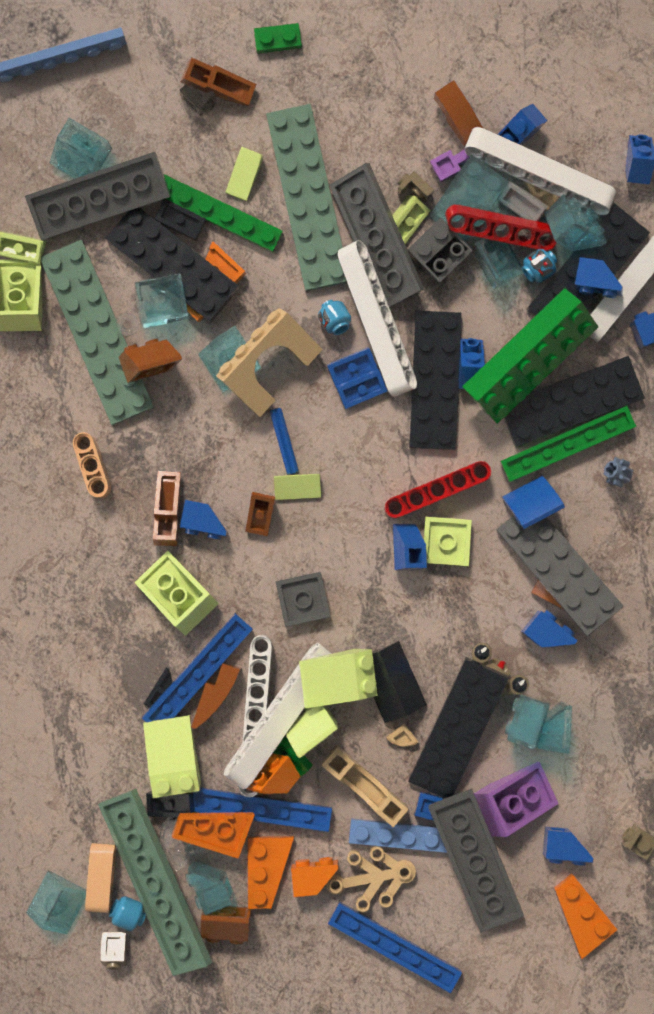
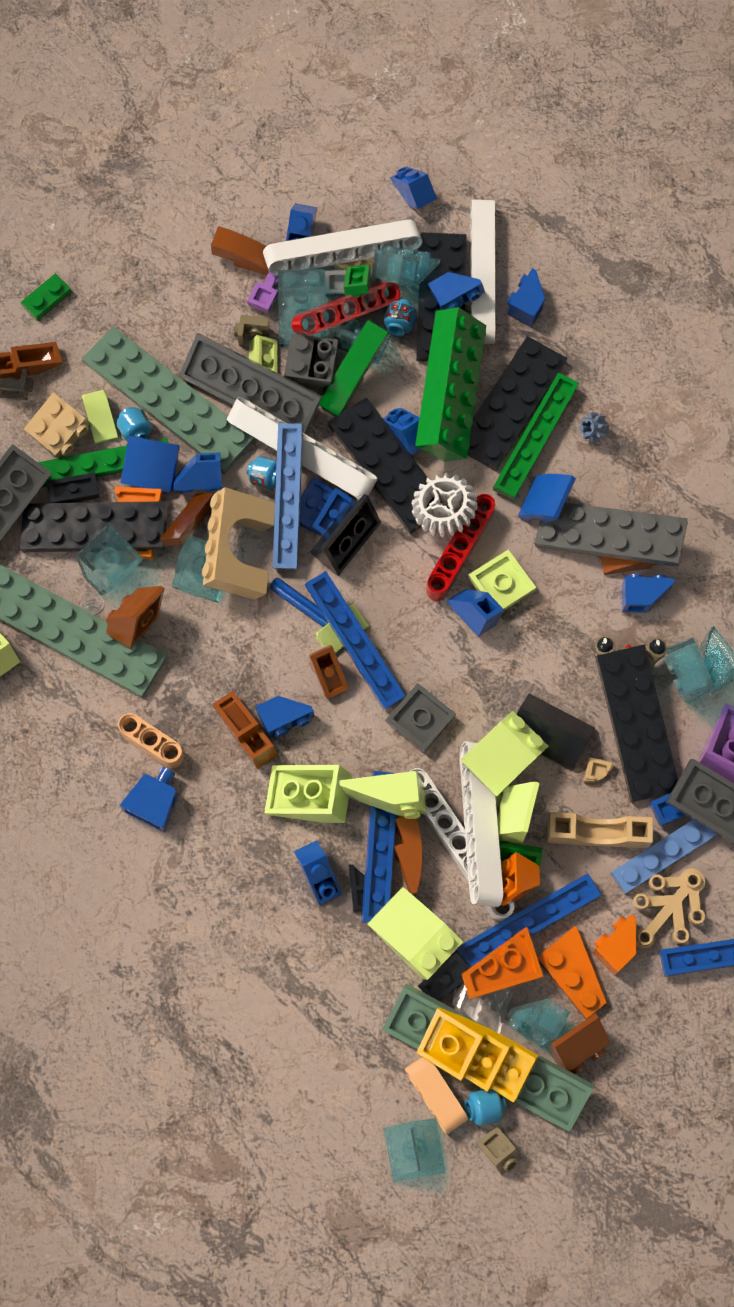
camera: 40 degrees left, 15 degrees down
(60, 511) = (152, 799): none -> blue torso
(138, 656) = (318, 872): none -> blue slope
(146, 877) = (477, 1054): none -> yellow slope
(205, 158) = (57, 426): none -> tan plate
(228, 649) = (394, 793): none -> yellowish green slope
(245, 313) = (187, 520): none -> reddish brown tile
(251, 244) = (150, 463): none -> blue slope
(263, 201) = (134, 422): none -> dark azure head
(284, 280) = (201, 472): none -> blue slope
(297, 504) = (354, 640): none -> blue plate
(335, 351) = (288, 496): none -> medium blue plate
(358, 414) = (347, 534): none -> black slope
(439, 448) = (438, 517): none -> white gear
(467, 283) = (353, 368): none -> green slope
(526, 212) = (357, 280): none -> green plate

